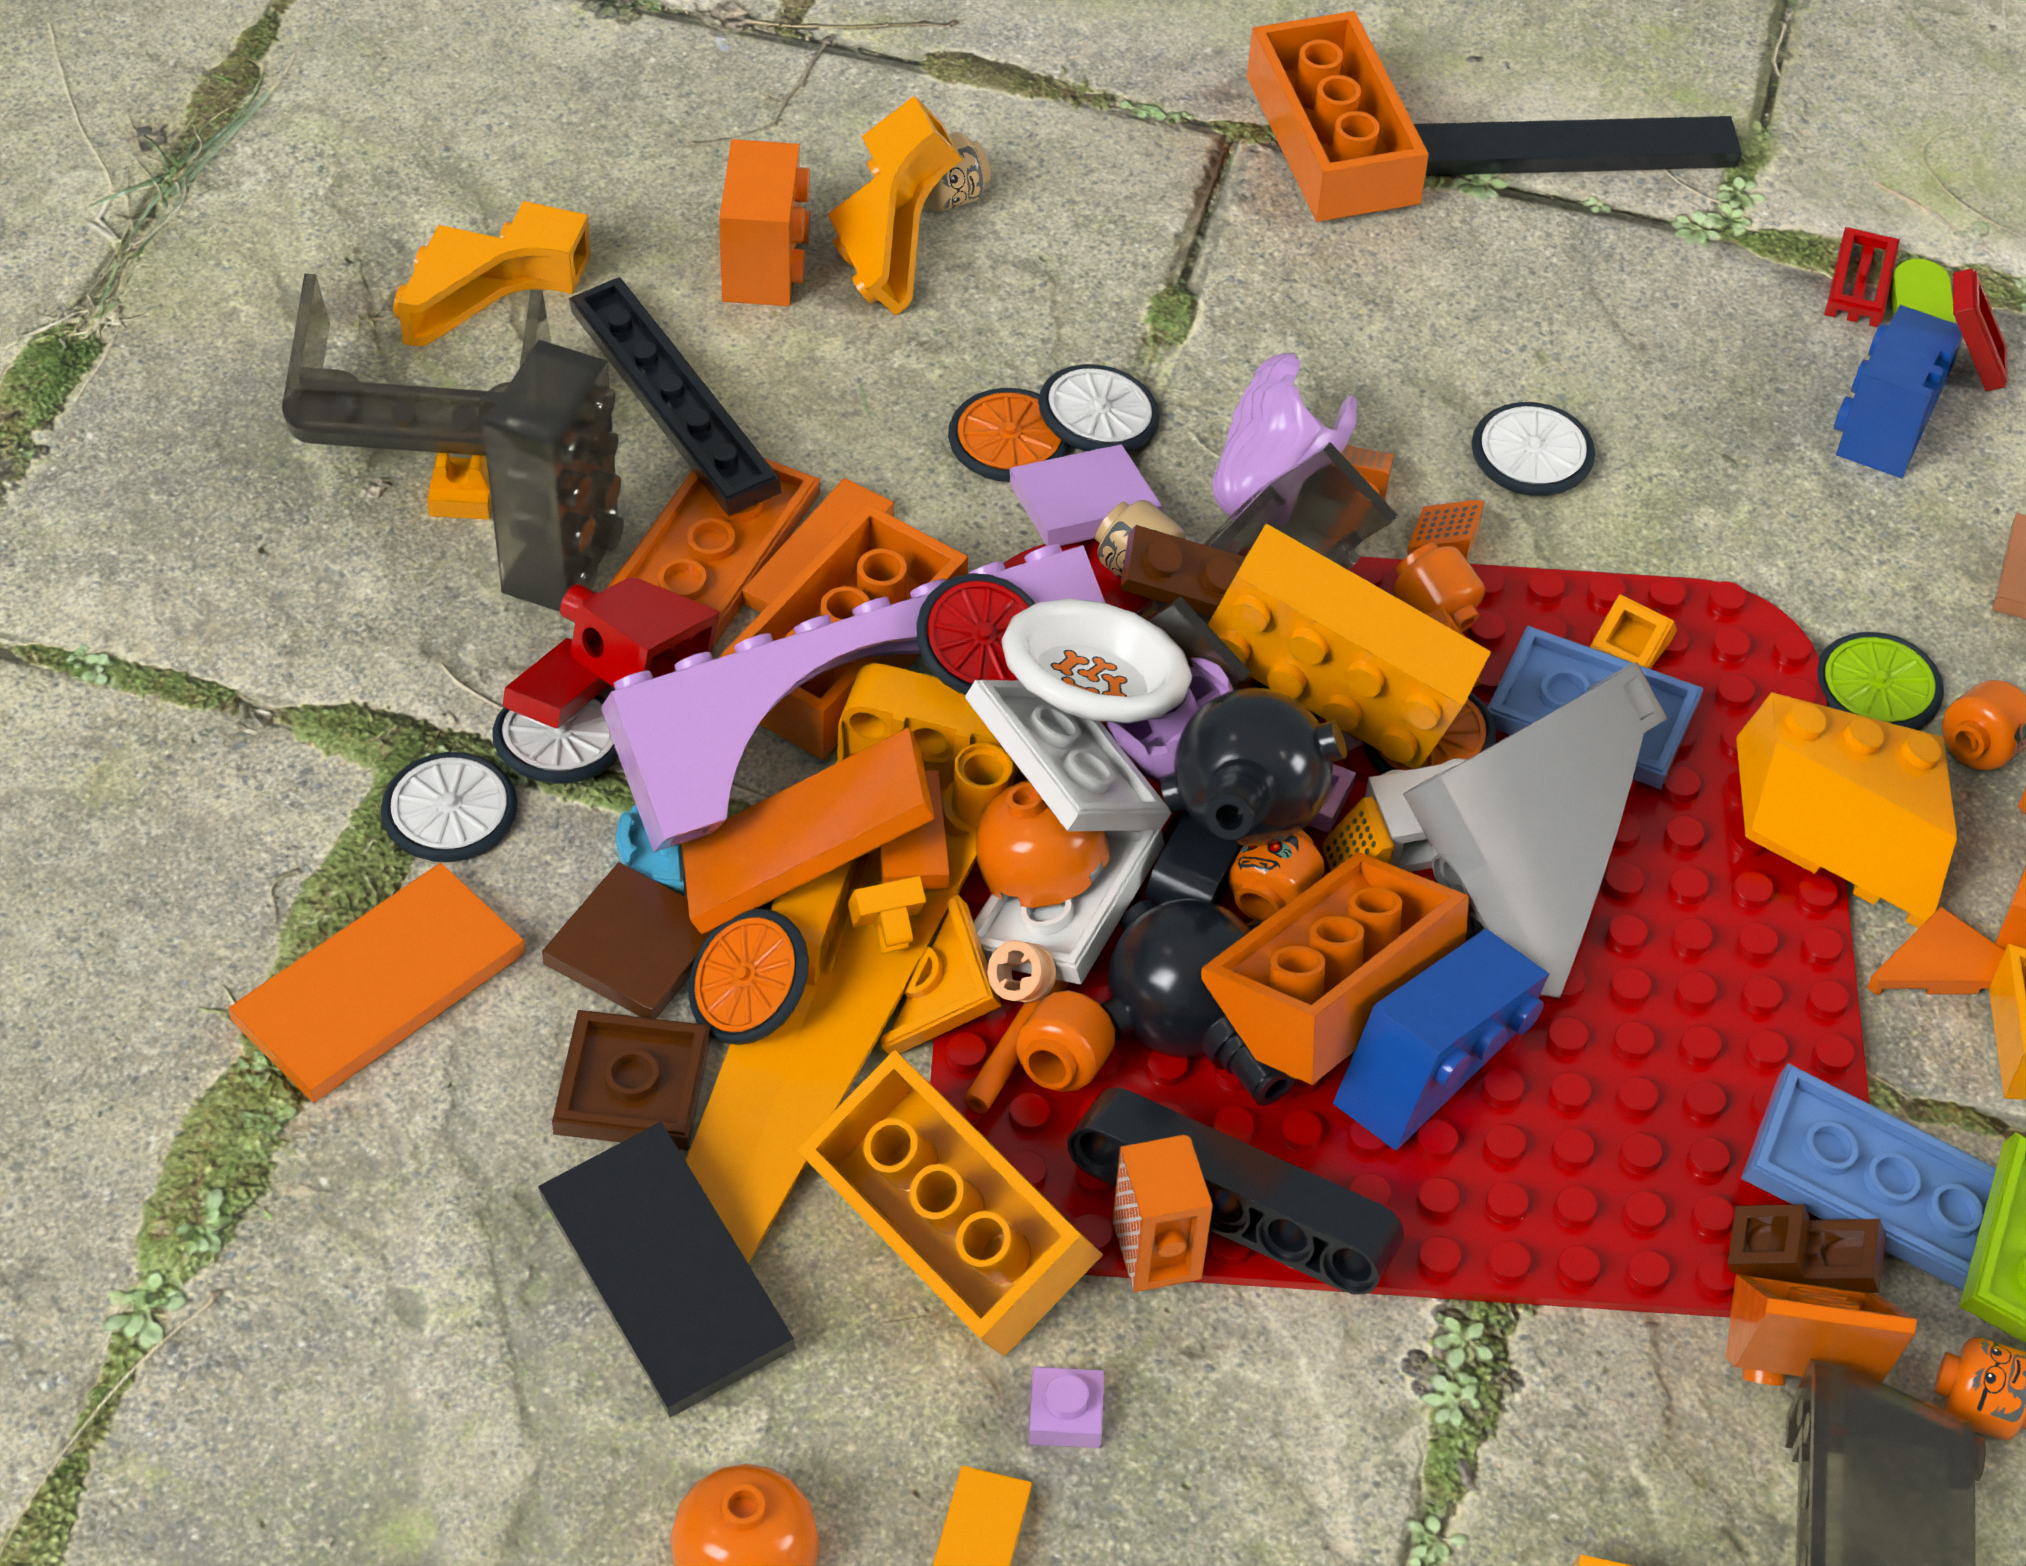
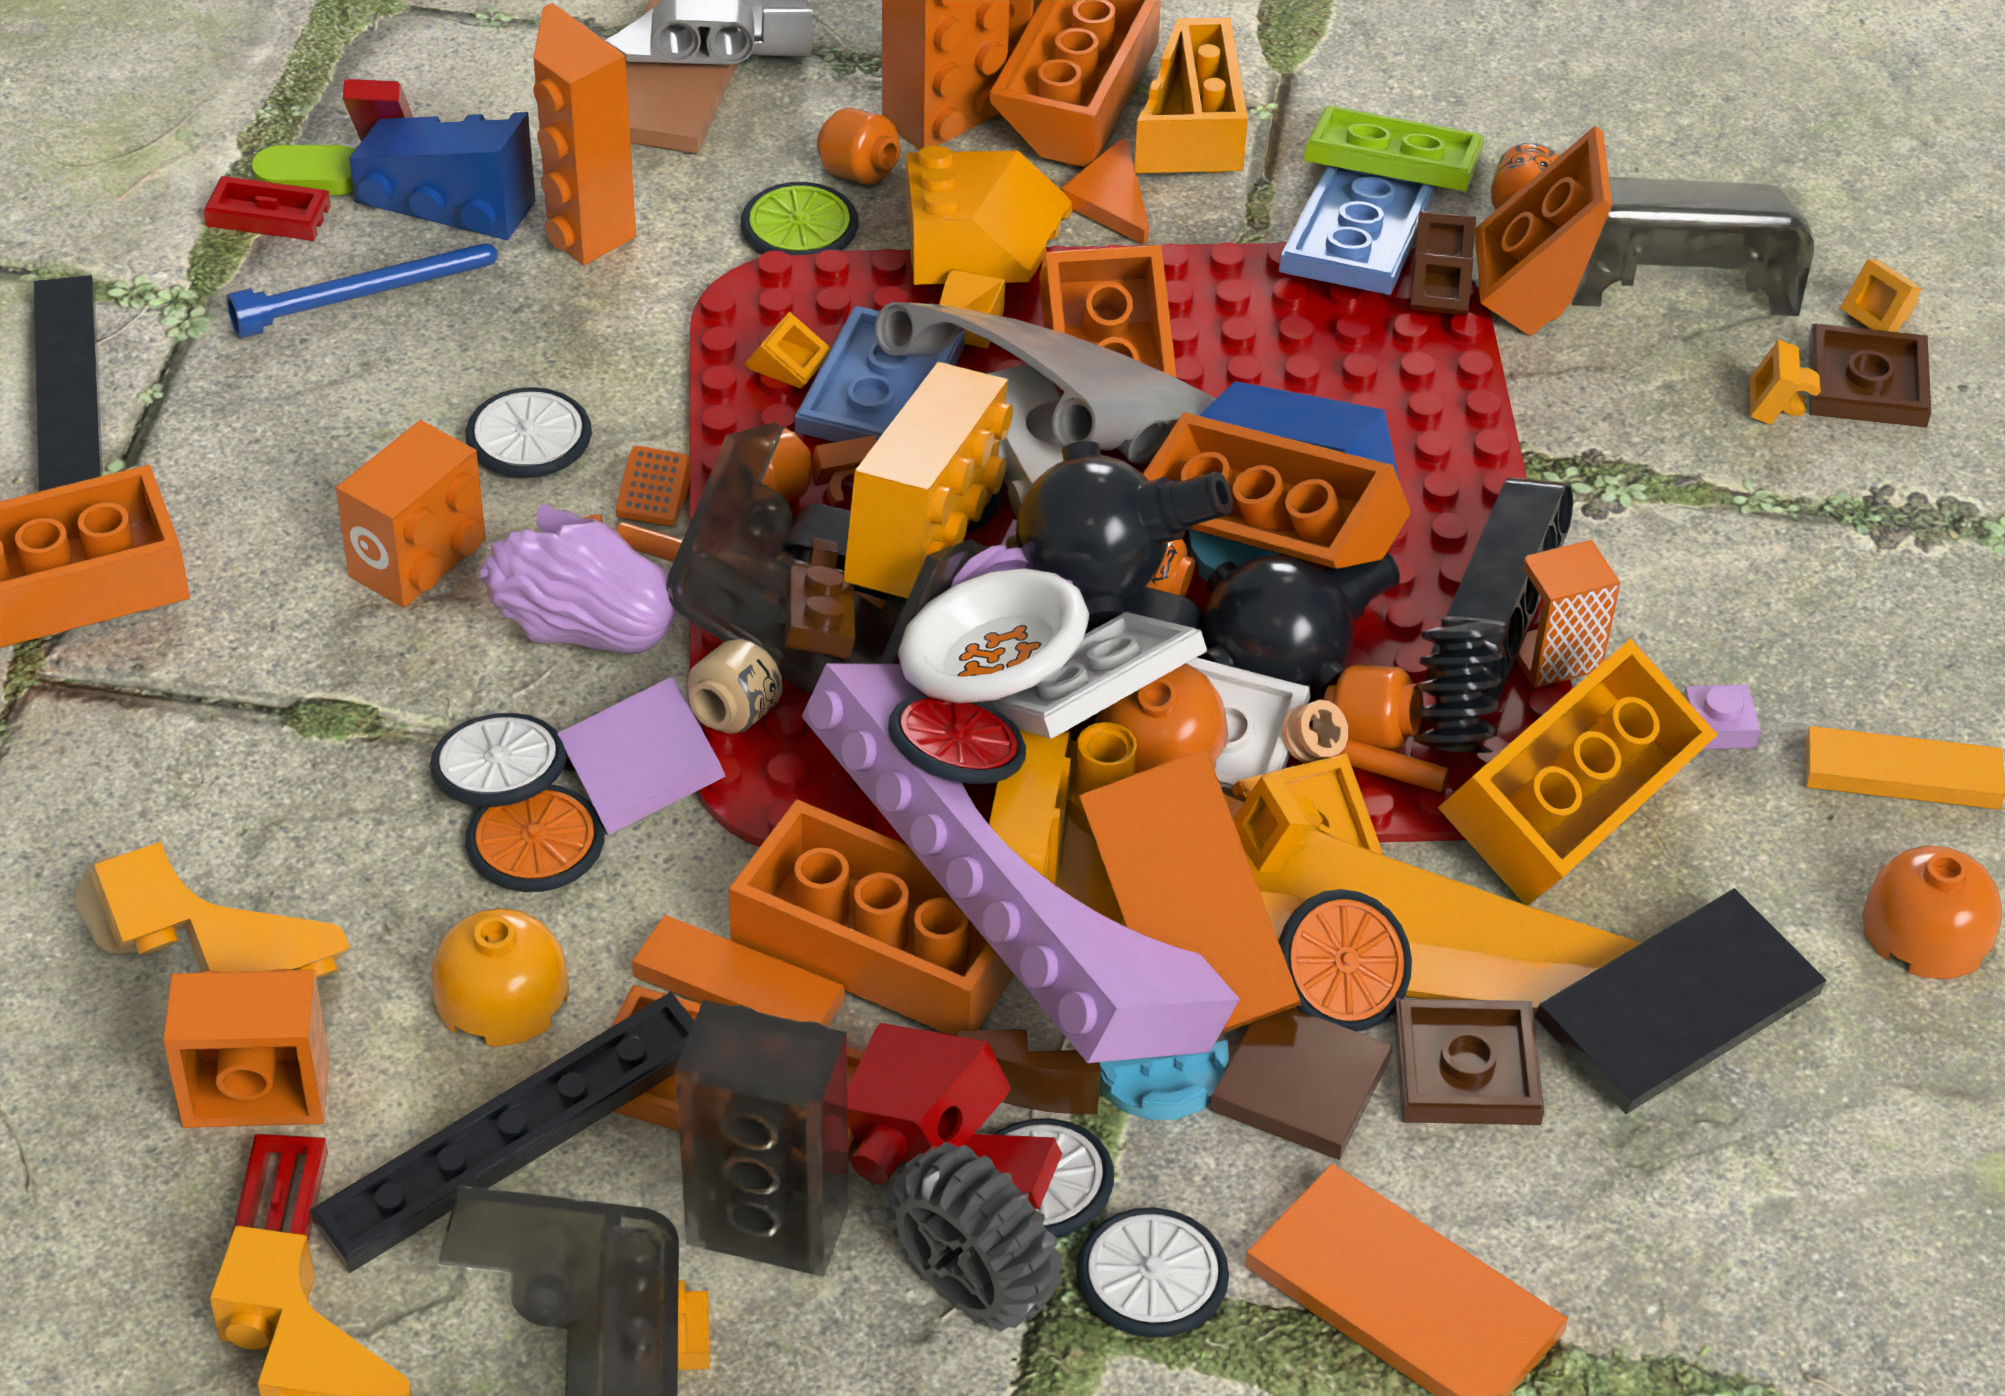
camera: 95 degrees left, 5 degrees down
(469, 645) = (974, 1236): none -> dark grey gear
(645, 267) = (309, 1186): none -> red tile
(841, 394) = (499, 976): none -> light orange cylinder
(1054, 1088) = (1460, 684): none -> black piece
(1379, 333) = (411, 513): none -> orange brick
(1674, 892) = (1111, 301): none -> orange slope
(1696, 258) = (254, 311): none -> blue piece
(1699, 785) = (974, 293): none -> light orange slope
(1891, 427) = (583, 138): none -> orange slope

